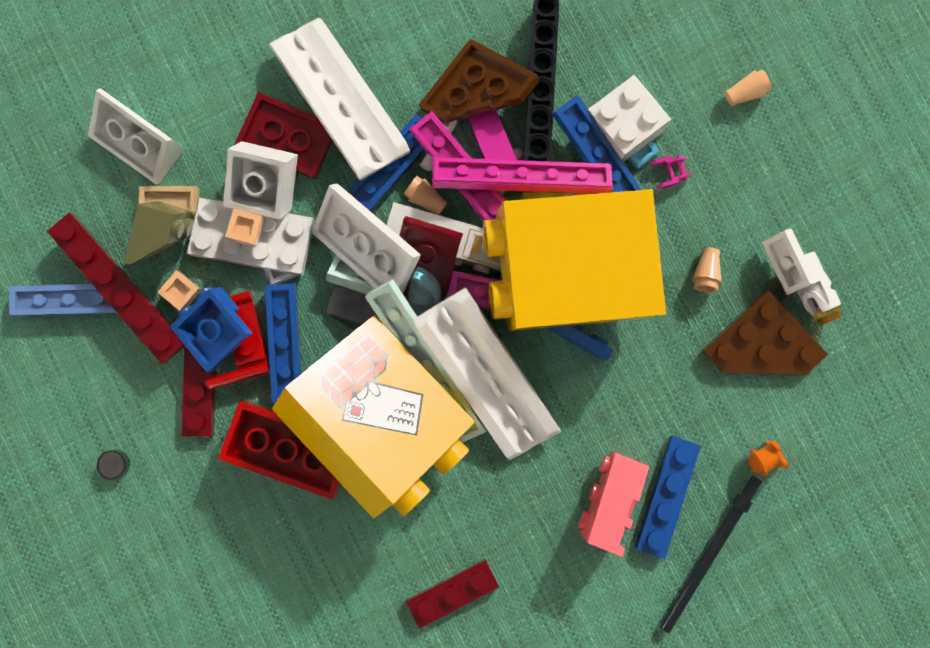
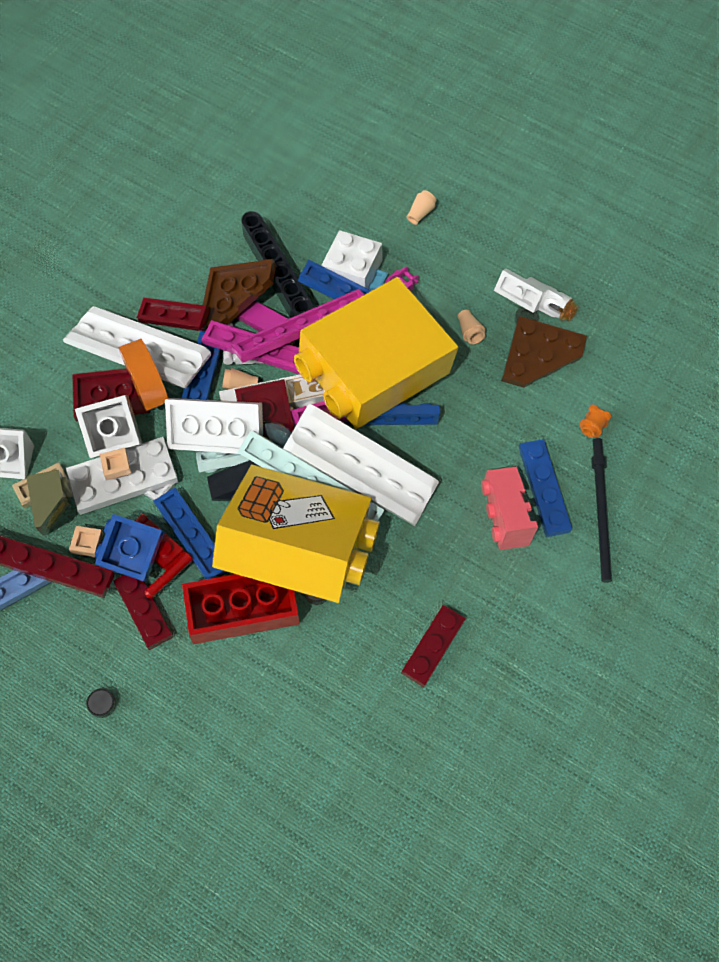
camera: 30 degrees left, 20 degrees down
(322, 141) = (144, 374): none -> orange brick
(398, 77) = (173, 314): none -> dark red plate

